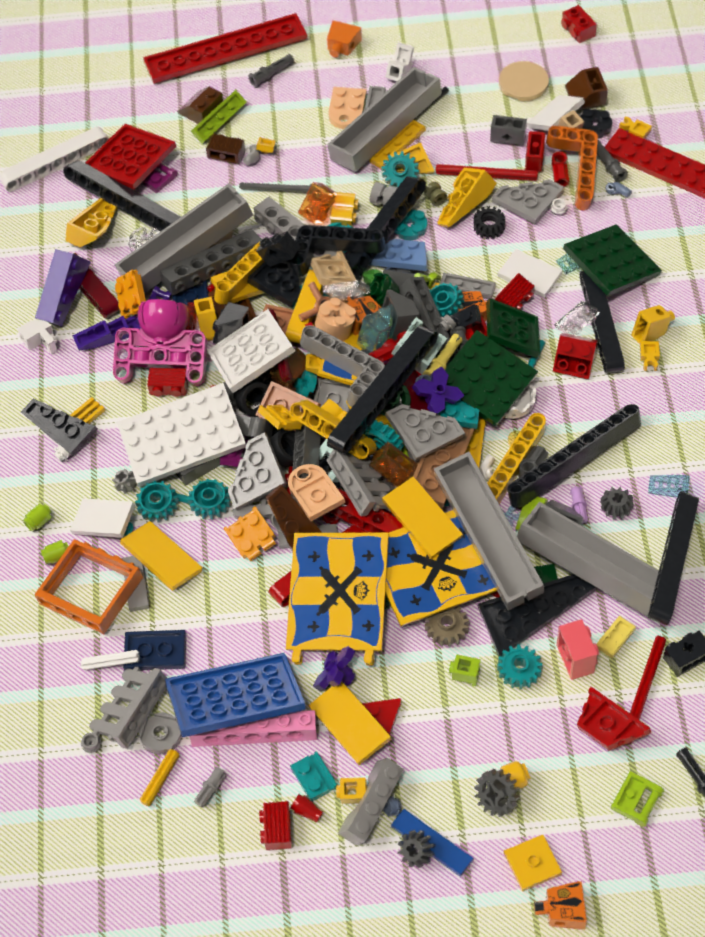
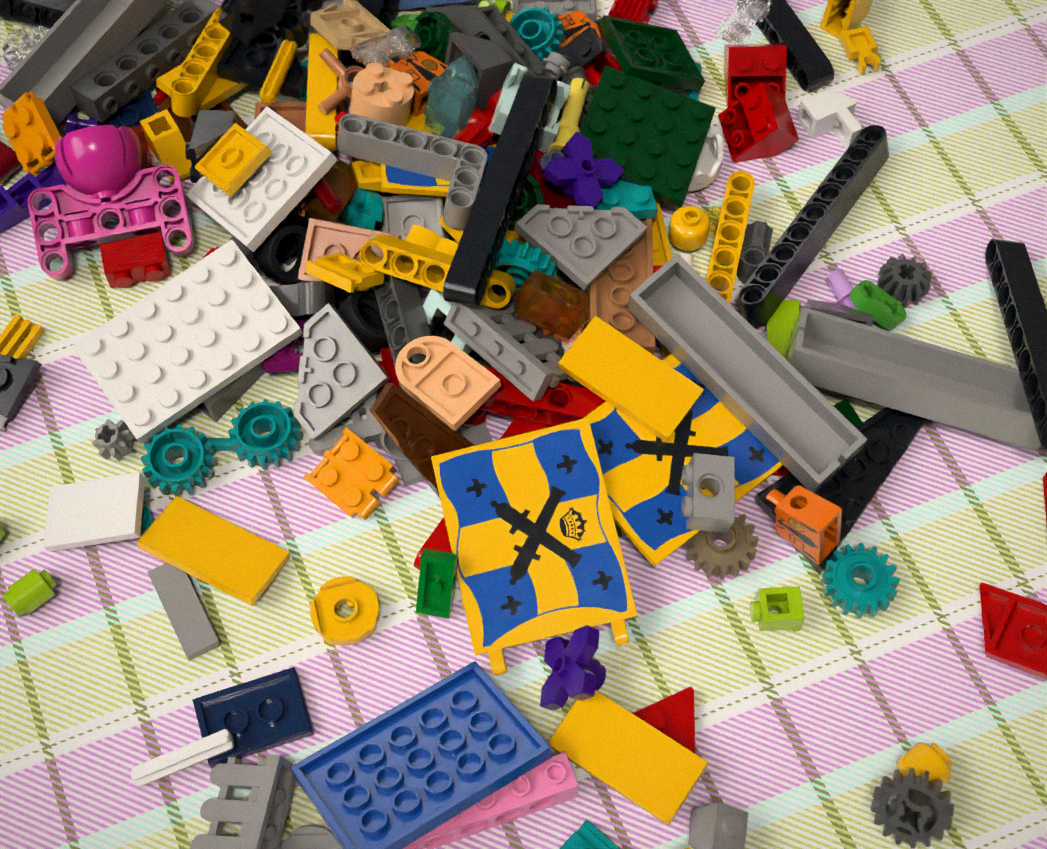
camera: 20 degrees left, 5 degrees up
(76, 549) = (65, 576): orange window -> none
(222, 617) = (353, 628): none -> yellow plate
(238, 336) = (233, 159): none -> yellow plate
(276, 604) = (436, 583): none -> green plate
(282, 289) = (278, 72): none -> yellow axle
(449, 582) = (718, 476): none -> light grey brick
(497, 440) = (689, 228): none -> yellow head
(497, 624) = (806, 521): none -> orange torso
(565, 387) = (758, 125): none -> red slope
(577, 649) = (943, 528): coral brick -> none
(593, 513) = (881, 305): none -> bright green beam
(611, 390) = (827, 113): none -> white brick
(615, 637) = (985, 491): light yellow plate -> none
(677, 480) = (981, 224): clear light blue slope -> none

